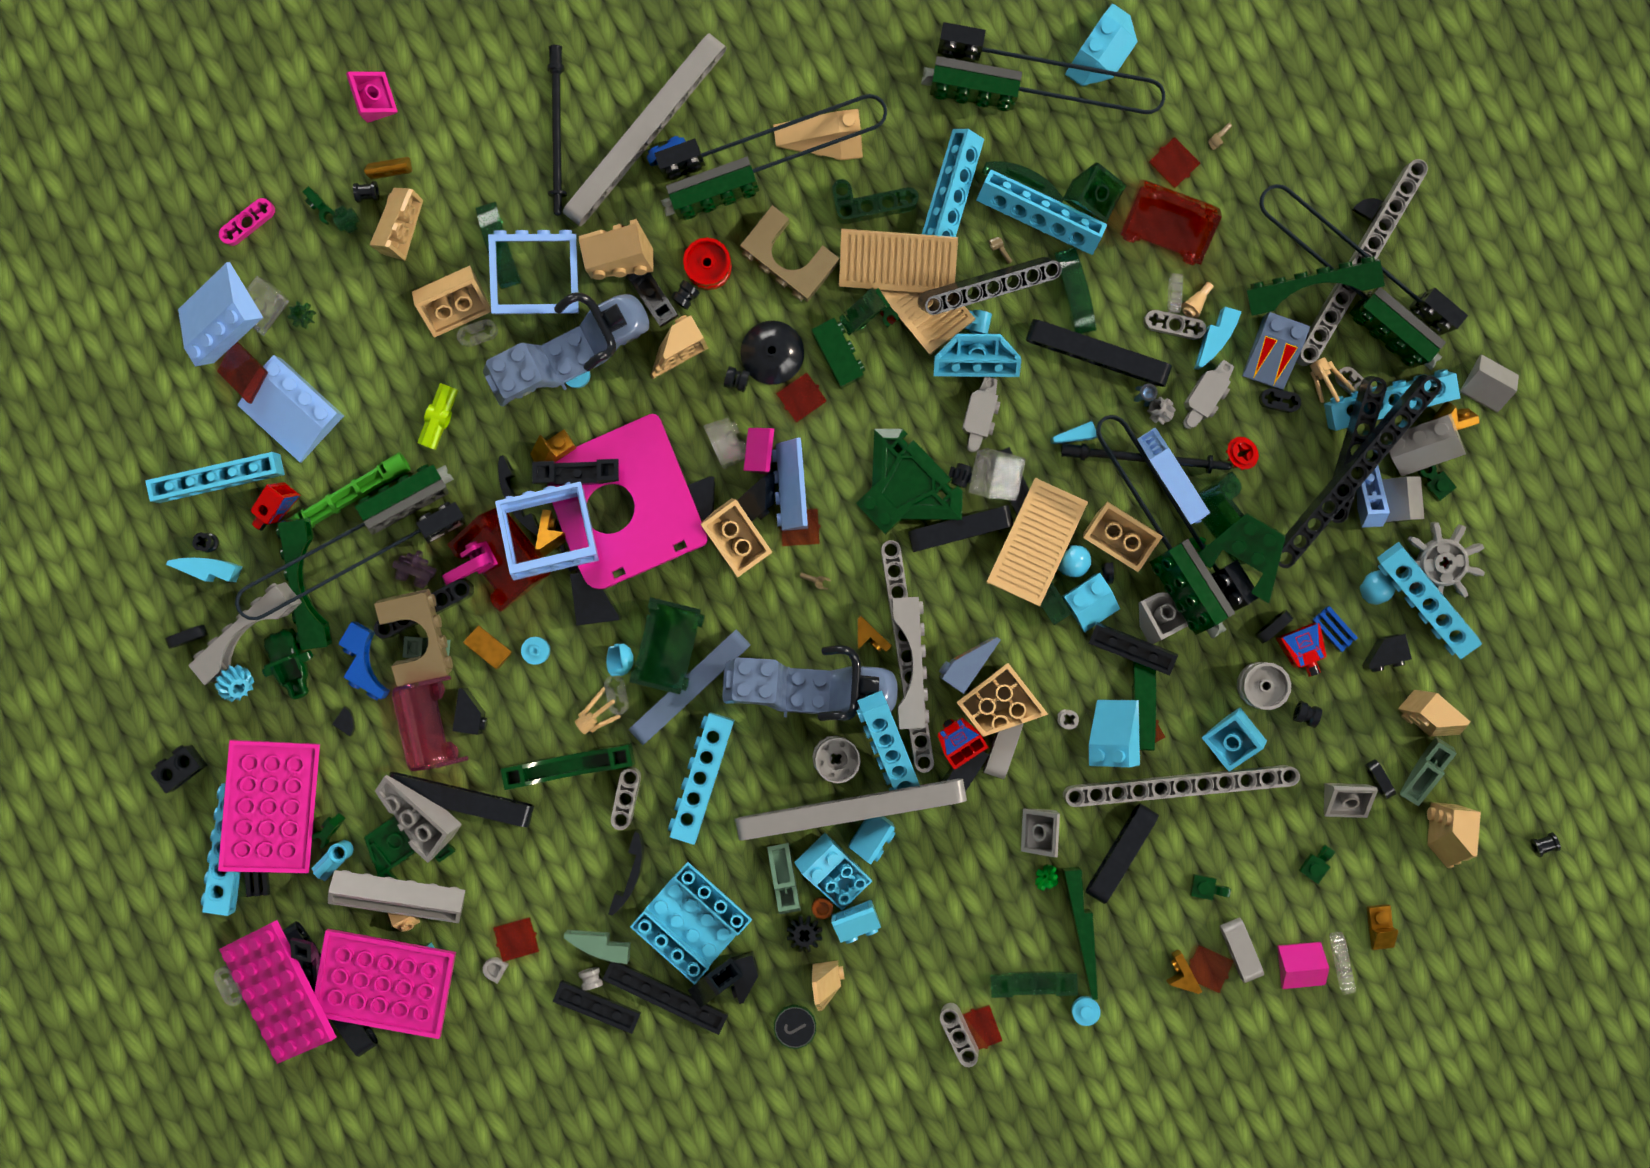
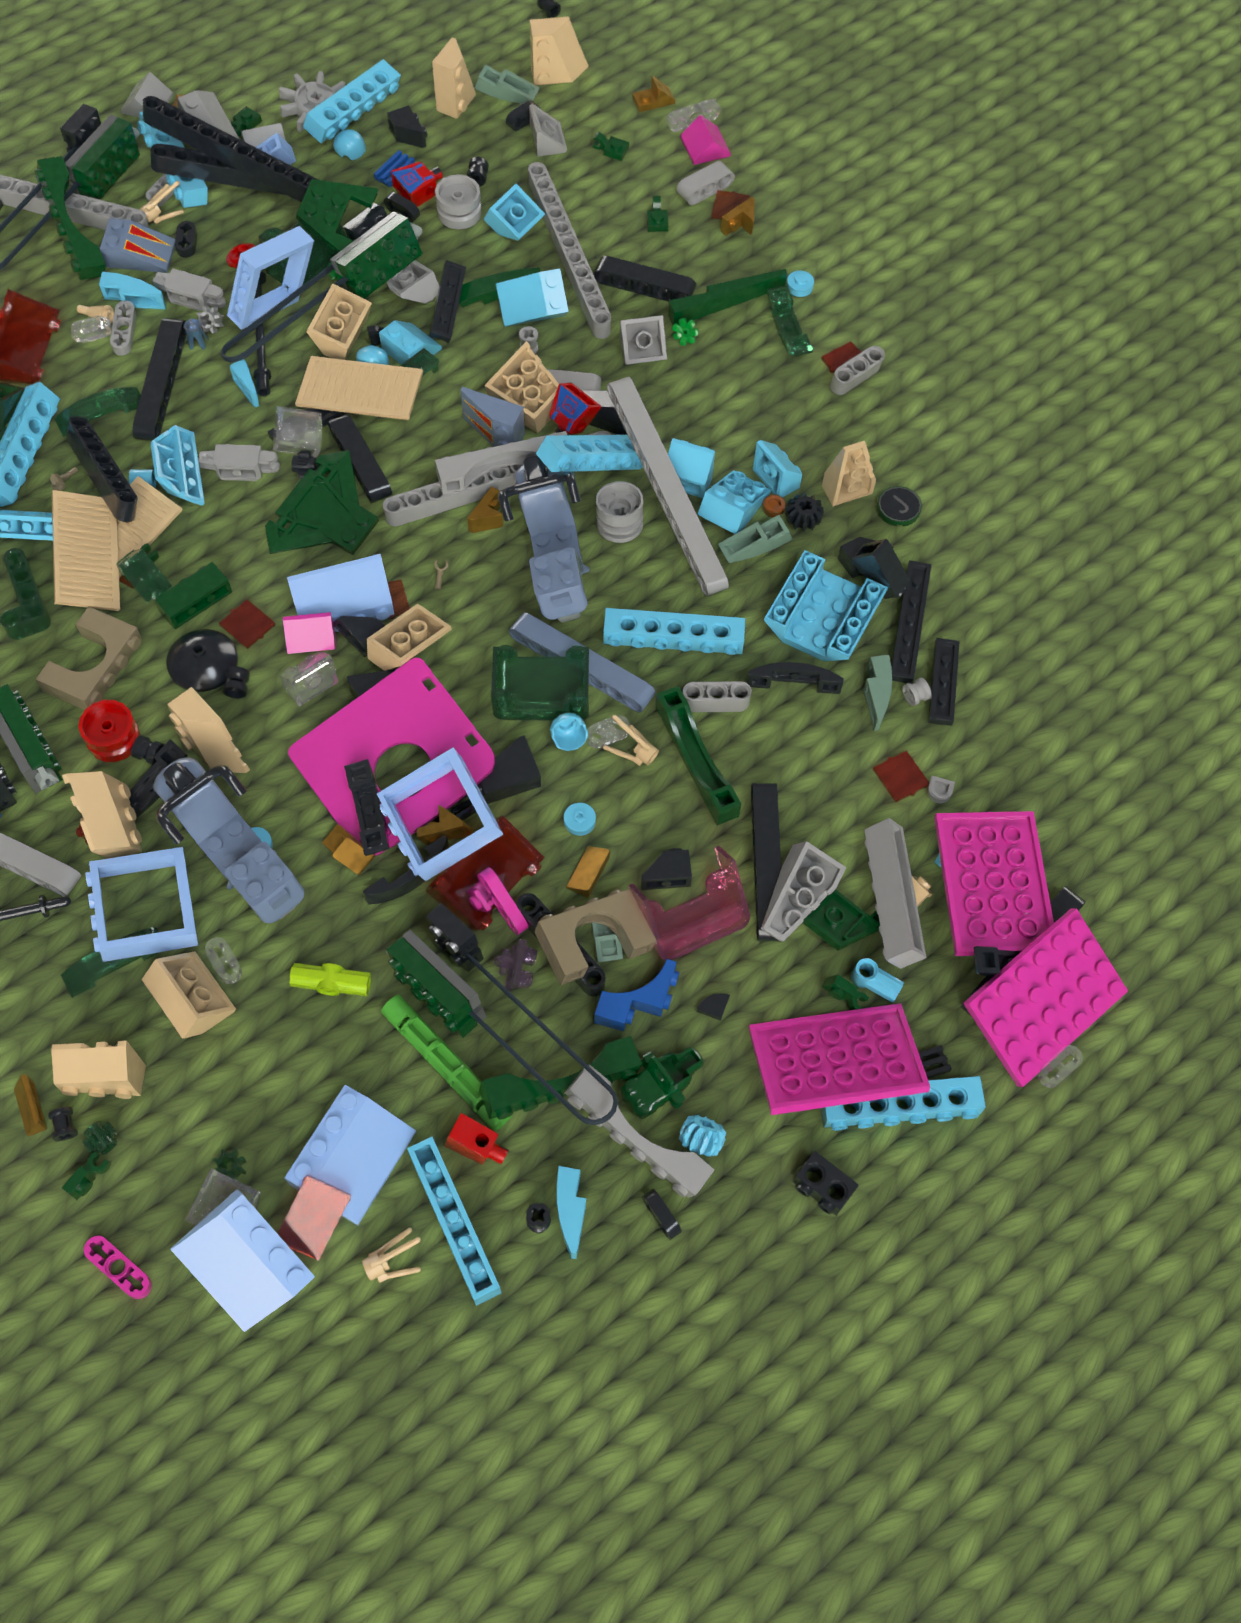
camera: 110 degrees left, 25 degrees down
(200, 415) = (378, 1263): none -> tan plant

